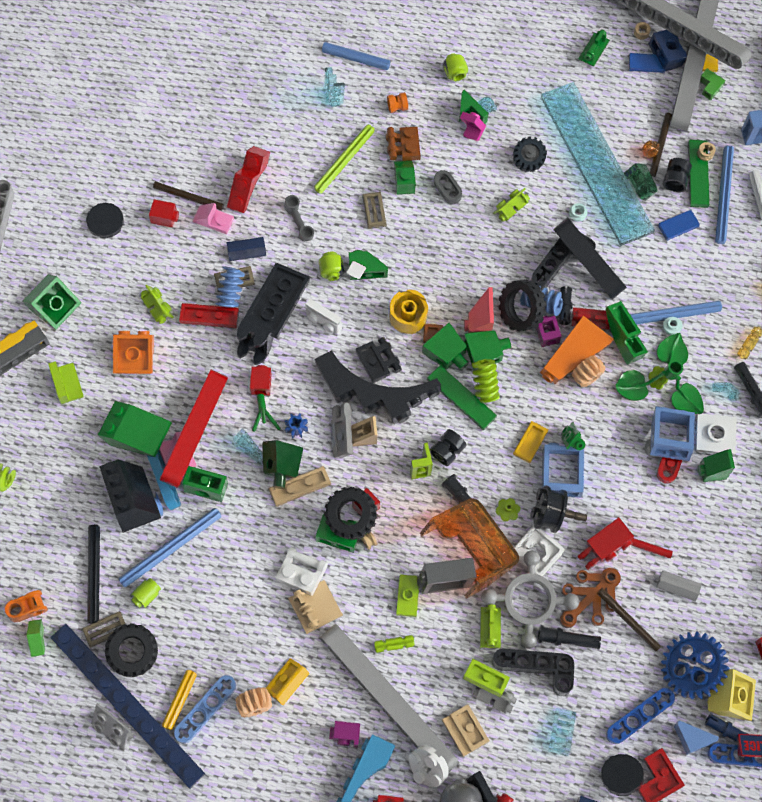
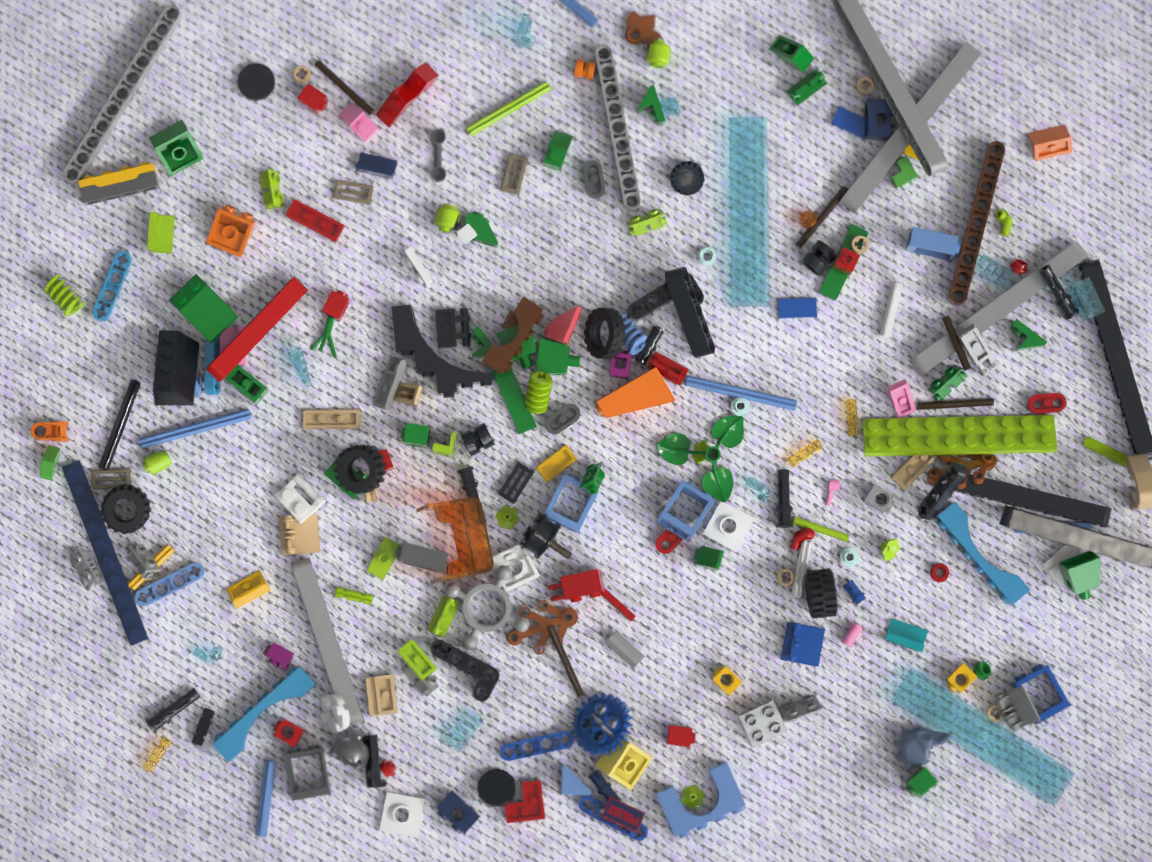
camera: 25 degrees right, 15 degrees up
(33, 448) = (109, 285): none -> dark azure beam
(144, 193) = (297, 71): none -> tan bush
(162, 691) = (139, 556): none -> light grey hinge
(230, 287) = (344, 203): medium blue piece -> none
(253, 702) = (211, 597): light nougat gear -> none
(270, 311) = (373, 240): black hinge -> none
(274, 765) = (209, 656): none -> clear light blue arm
(281, 461) = (322, 392): dark green torso -> none
(292, 429) = (354, 365): blue gear -> none
(389, 464) = (416, 435): none -> green brick
(399, 313) = (498, 283): yellow brick -> none
(409, 143) = (578, 116): dark orange plate -> none
(421, 364) = (480, 338): none -> green slope
(431, 54) = (643, 27): none -> dark orange plate
(436, 360) = (500, 357): none -> reddish brown arch
(451, 146) = (613, 119): none -> light grey beam
(475, 126) = (646, 128): dark pink bracket -> none
(504, 458) = (524, 469): none -> black tile
(518, 400) = (562, 419): none -> dark grey plate
(559, 636) = (497, 649): black pin -> none
(569, 26) = (792, 53): none -> green slope
(588, 371) = (637, 420): light nougat gear -> none
(625, 333) = (689, 397): green slope -> none
(641, 180) = (782, 250): clear green leg -> none
(703, 166) = (846, 261): none -> red brick
(724, 195) = (857, 294): medium blue axle -> none

